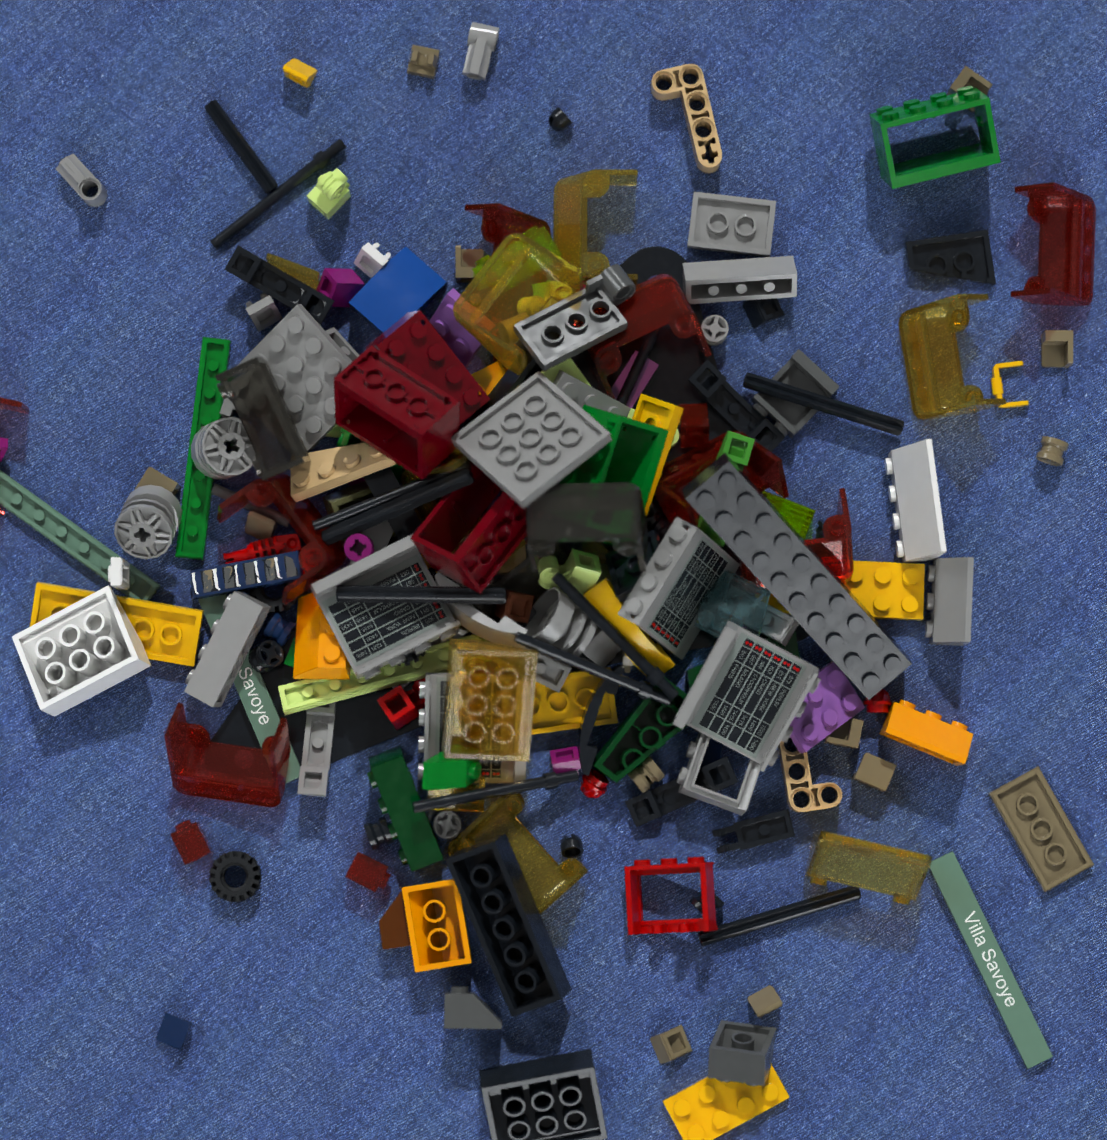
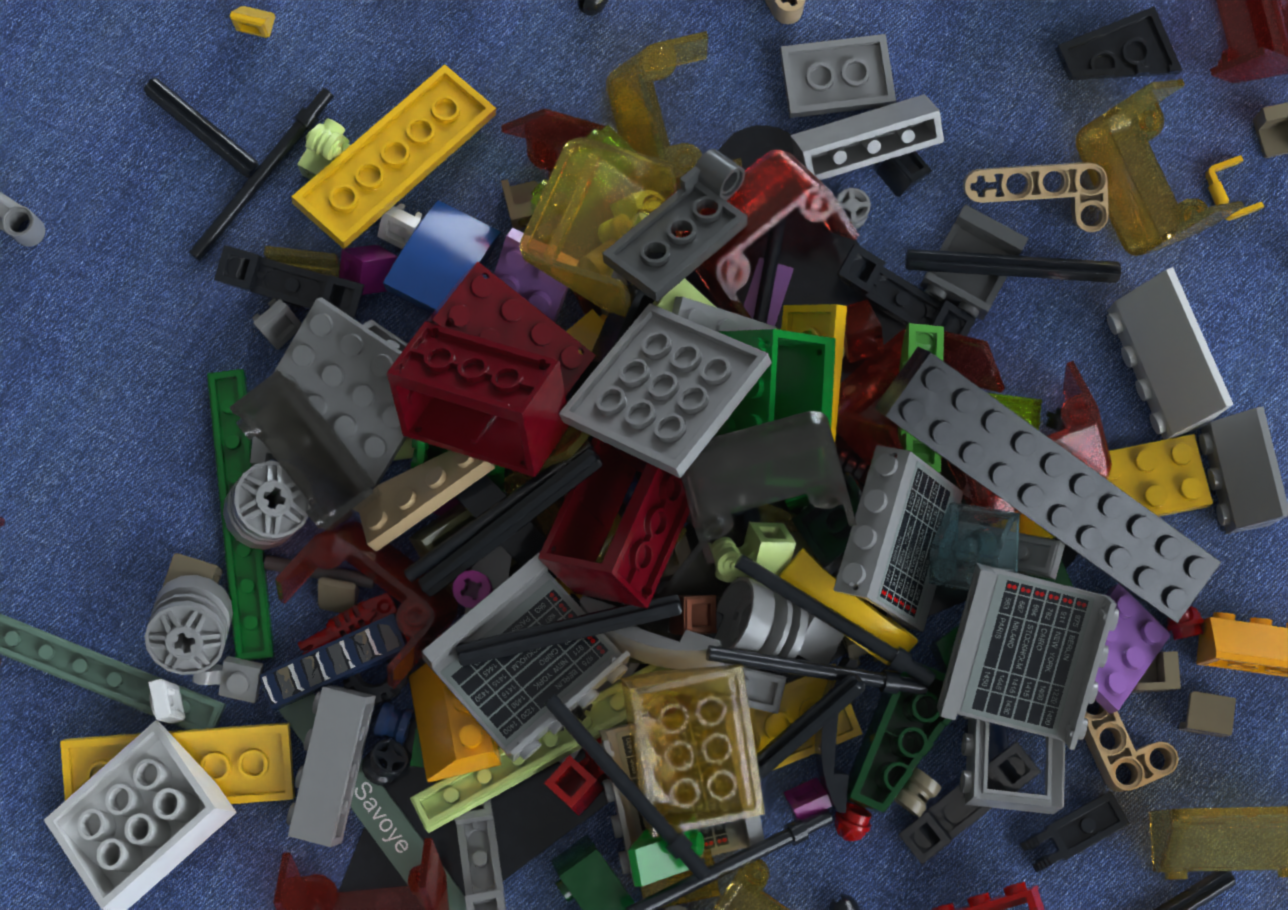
camera: 15 degrees left, 5 degrees down
(173, 568) = (236, 678): none -> light grey plate
(380, 206) = (393, 156): none -> yellow plate
(459, 766) = (677, 843): none -> black bar
(576, 705) = (809, 723): none -> black axle
(856, 350) = (1035, 189): none -> tan beam

